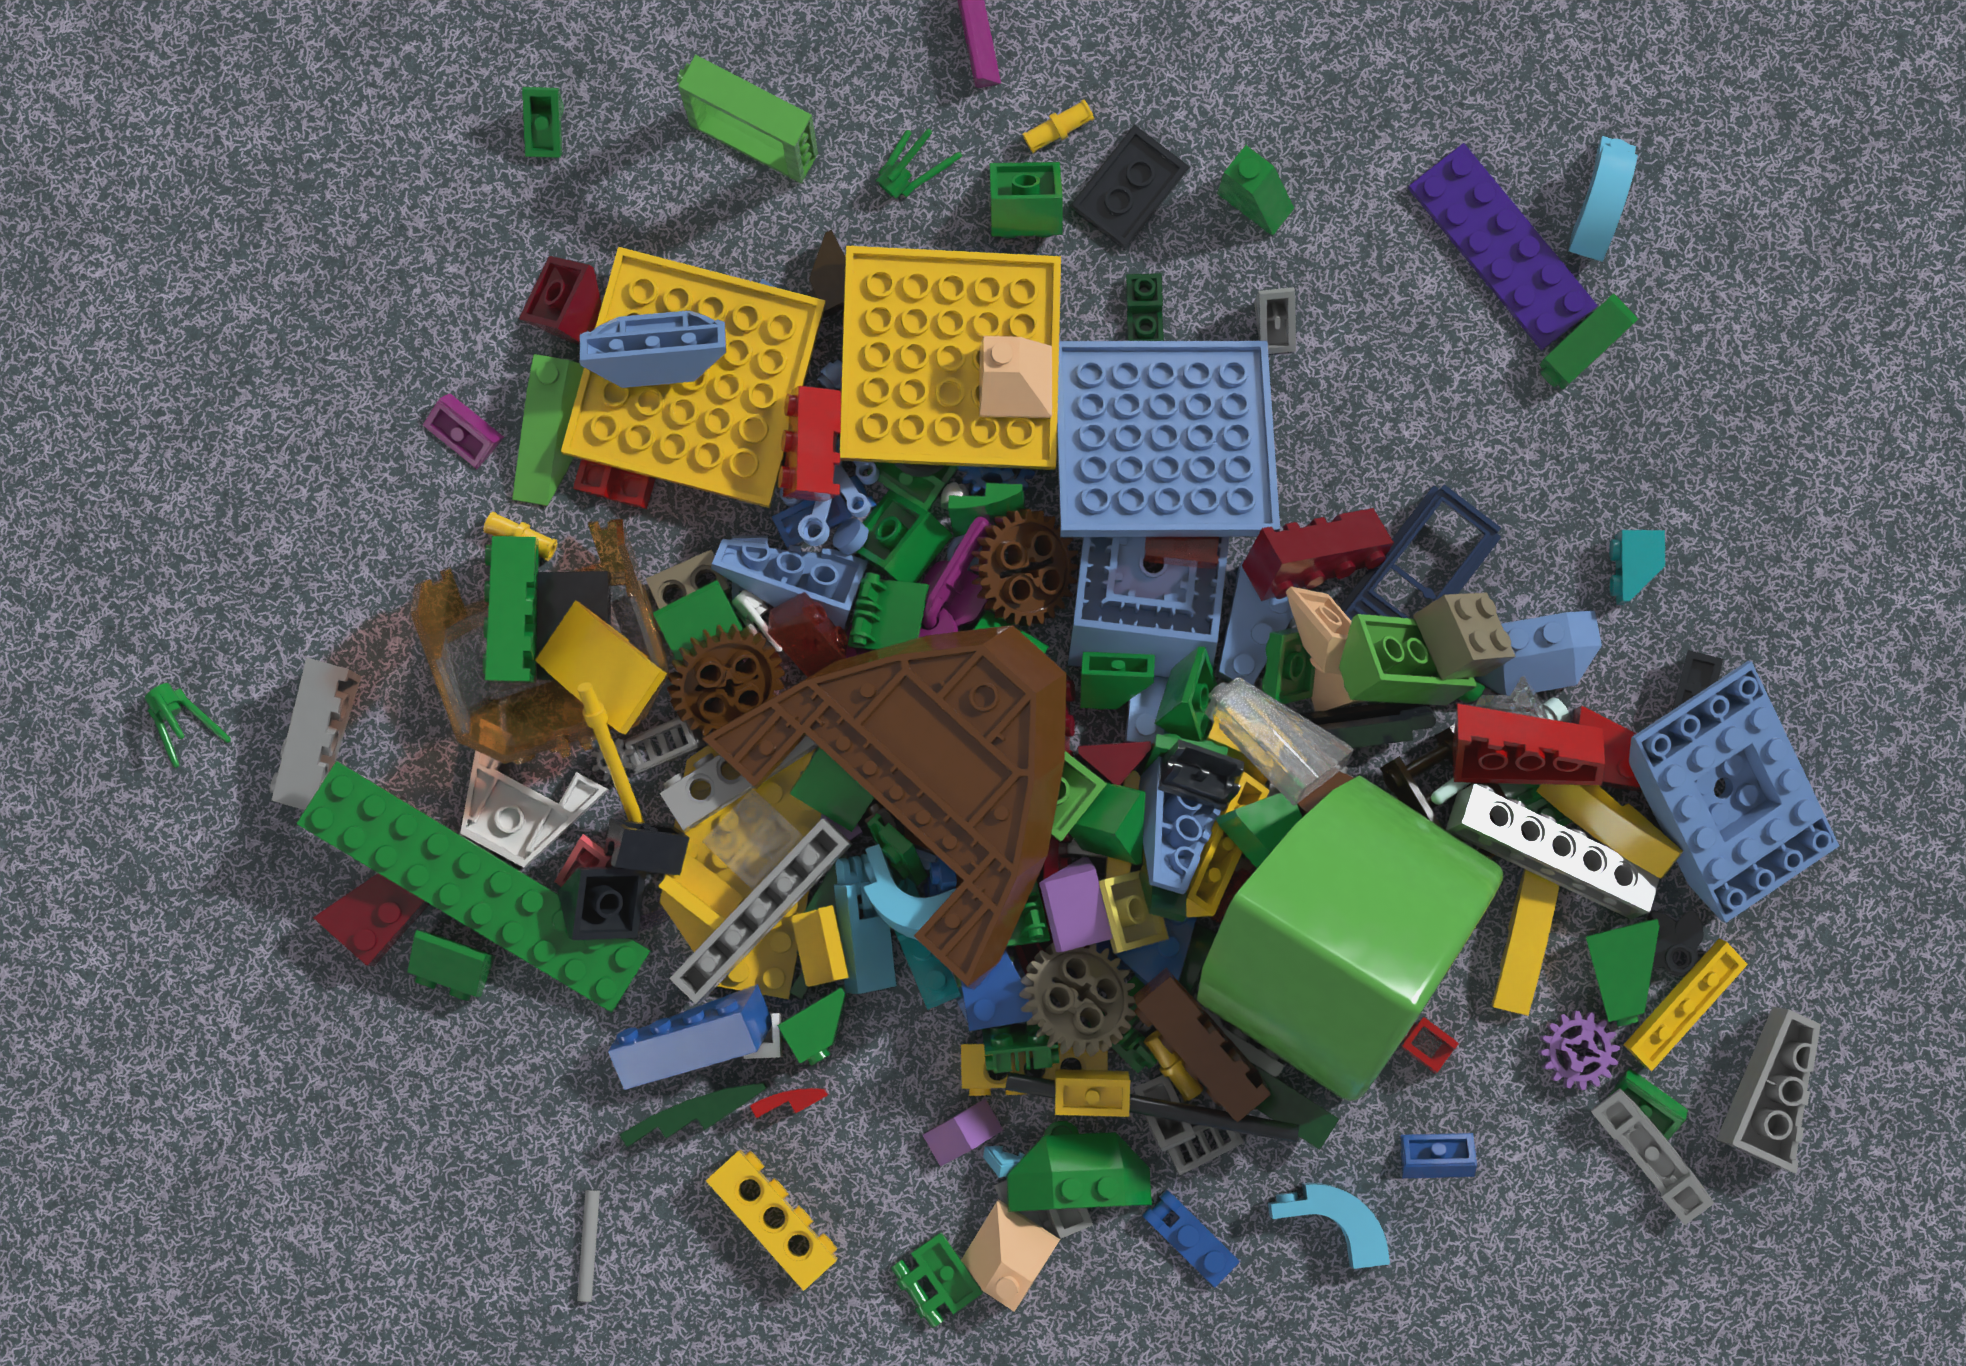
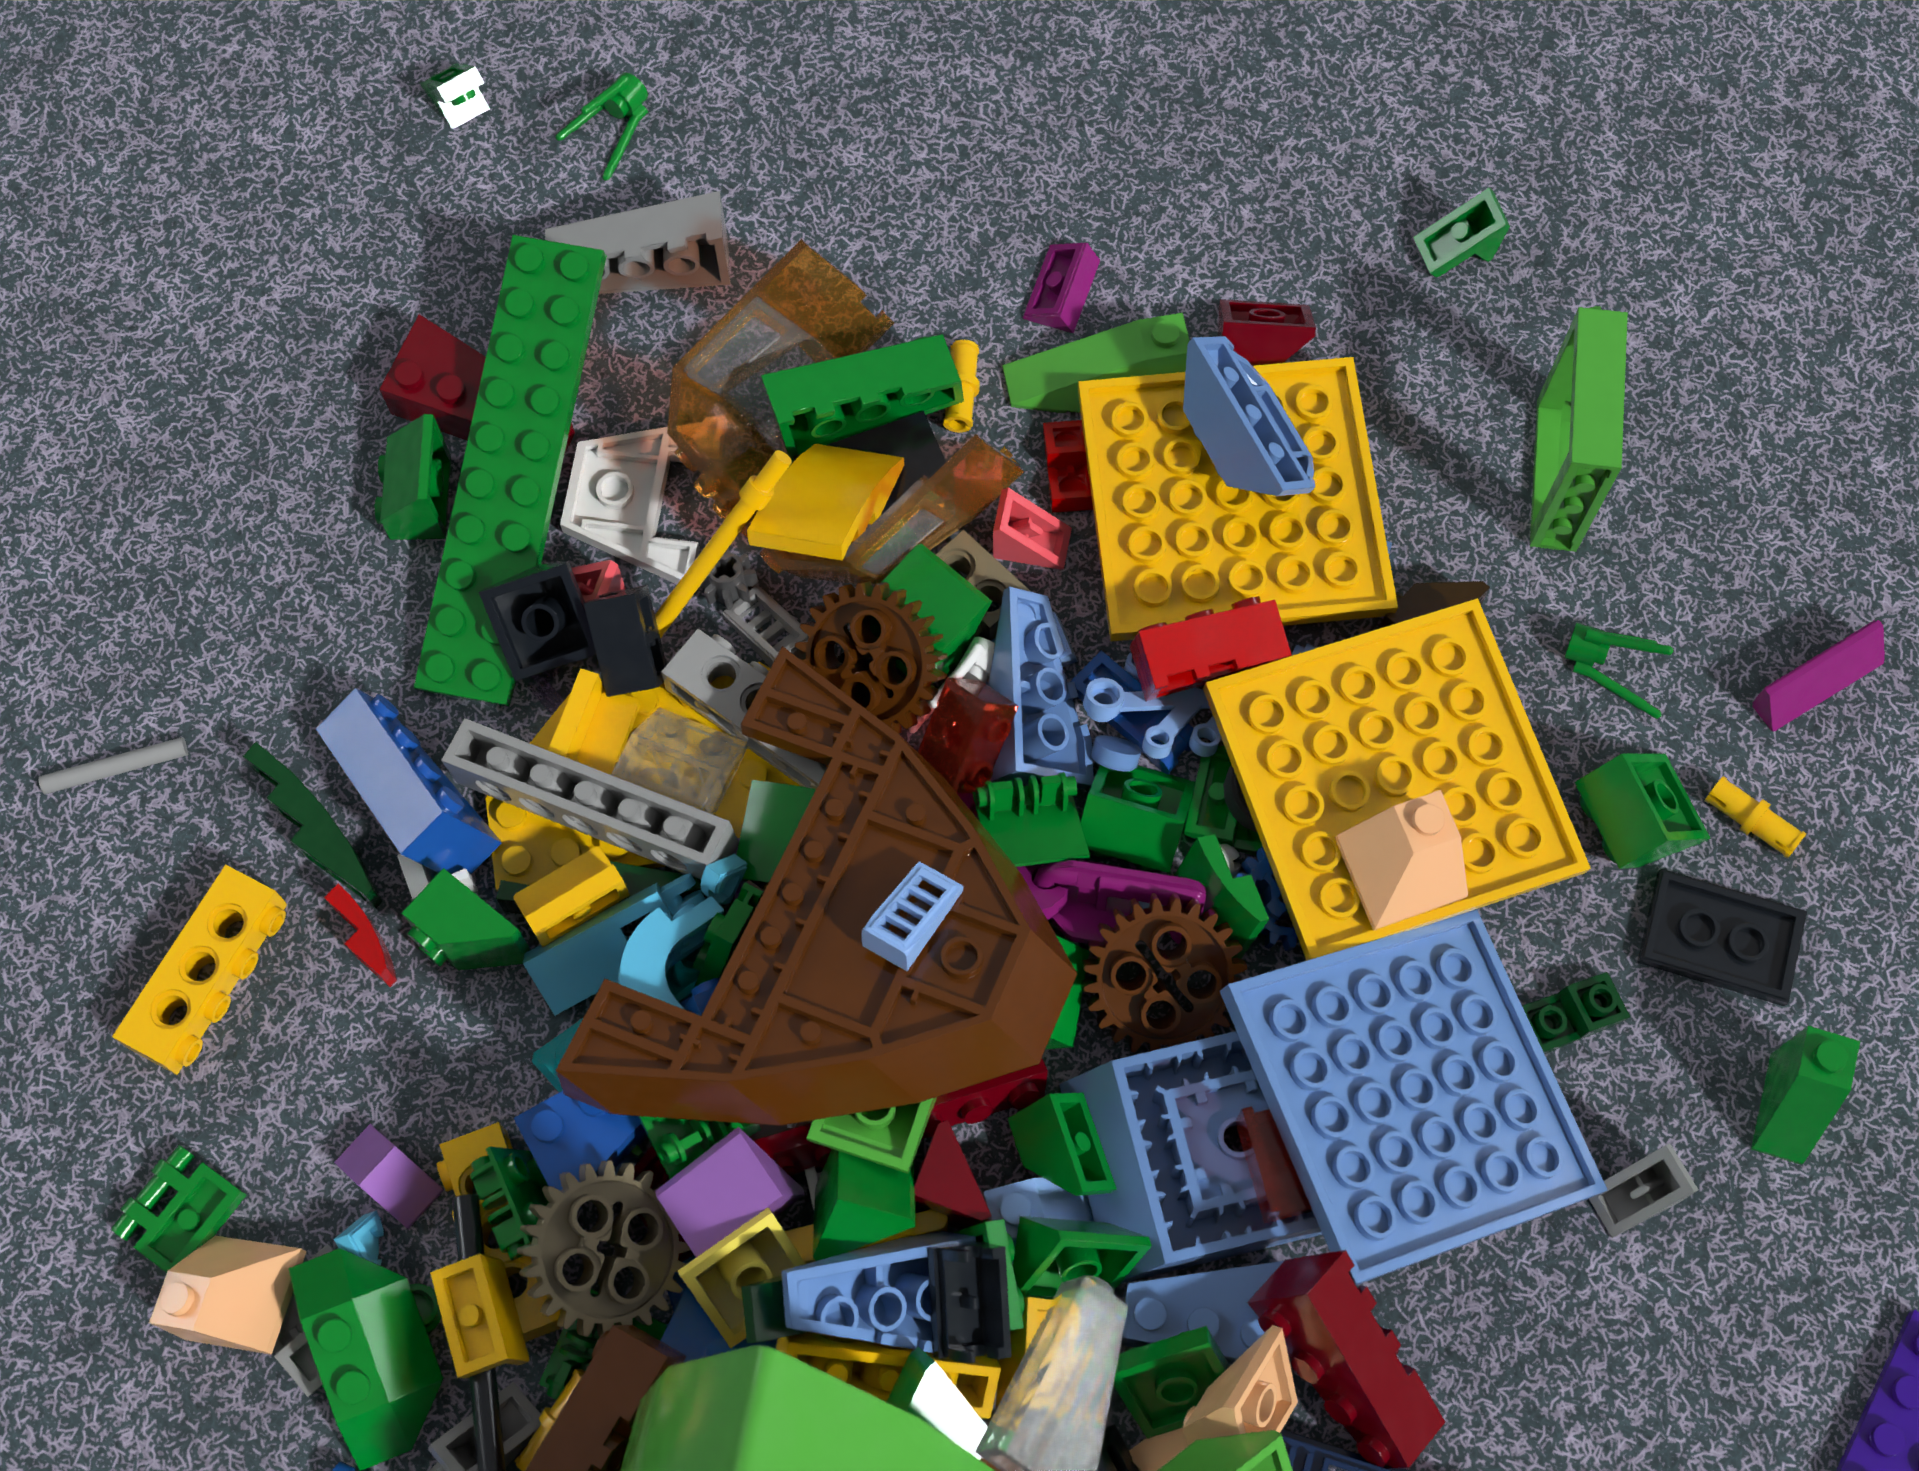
camera: 75 degrees right, 15 degrees down
(104, 832) = (456, 93): none -> slope
(661, 532) = (1028, 533): none -> coral slope
(854, 836) = (723, 878): none -> medium azure tile
(960, 742) = (895, 948): none -> light blue slope

